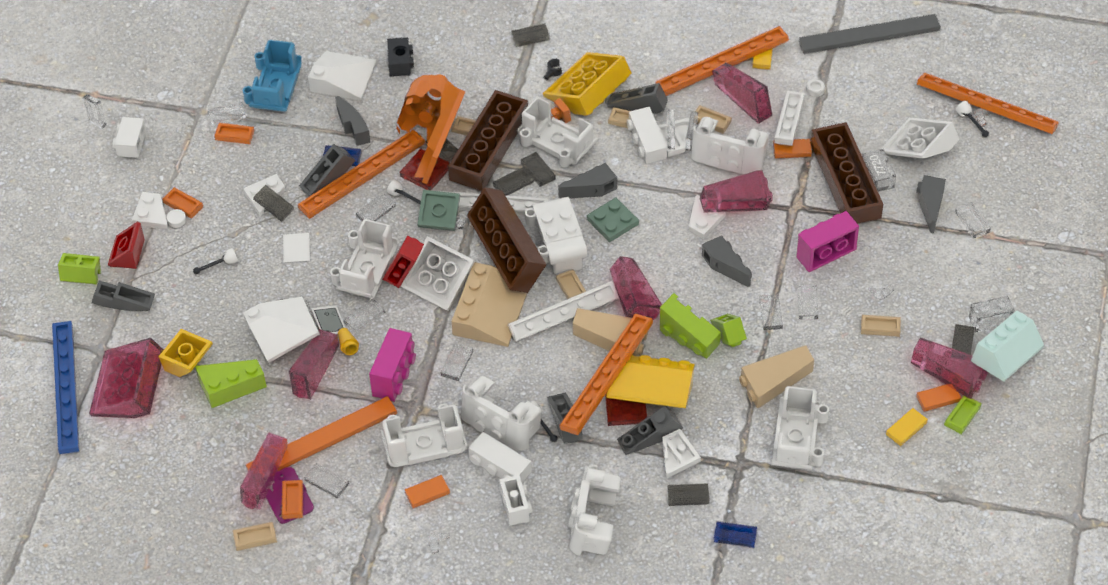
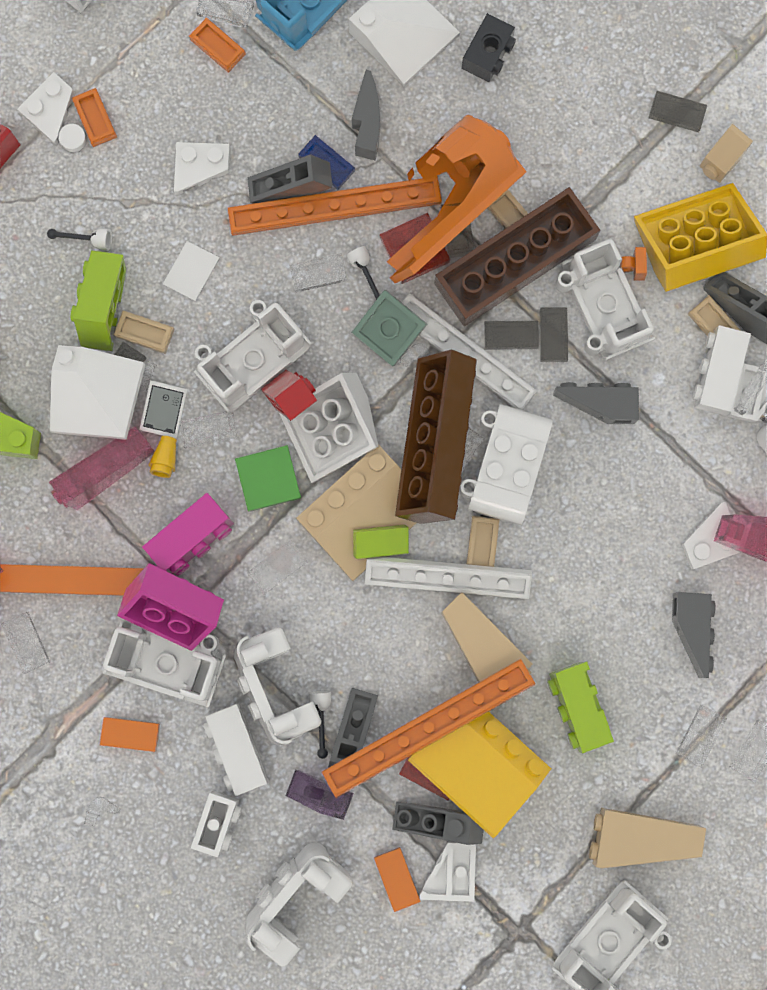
camera: 30 degrees right, 30 degrees up
(250, 279) = (98, 299): none -> lime wedge
(273, 203) = (198, 189): clear smoke tile -> none
(289, 289) = (144, 332): none -> tan tile
(408, 396) = (170, 607): none -> dark pink brick
(419, 320) = (268, 478): none -> bright green tile
(510, 312) = (381, 541): none -> lime tile
(553, 71) = (665, 188): black piece -> none
(567, 455) = (317, 795): none -> clear purple slope
(572, 36) = (725, 154): none -> tan slope
(612, 219) = (597, 471): sand green plate -> none
(633, 289) = (549, 608): clear pink slope -> none
(646, 476) = (397, 879): none -> orange tile
(688, 494) = (429, 936): clear smoke tile -> none
(731, 329) = (631, 733): lime slope -> none

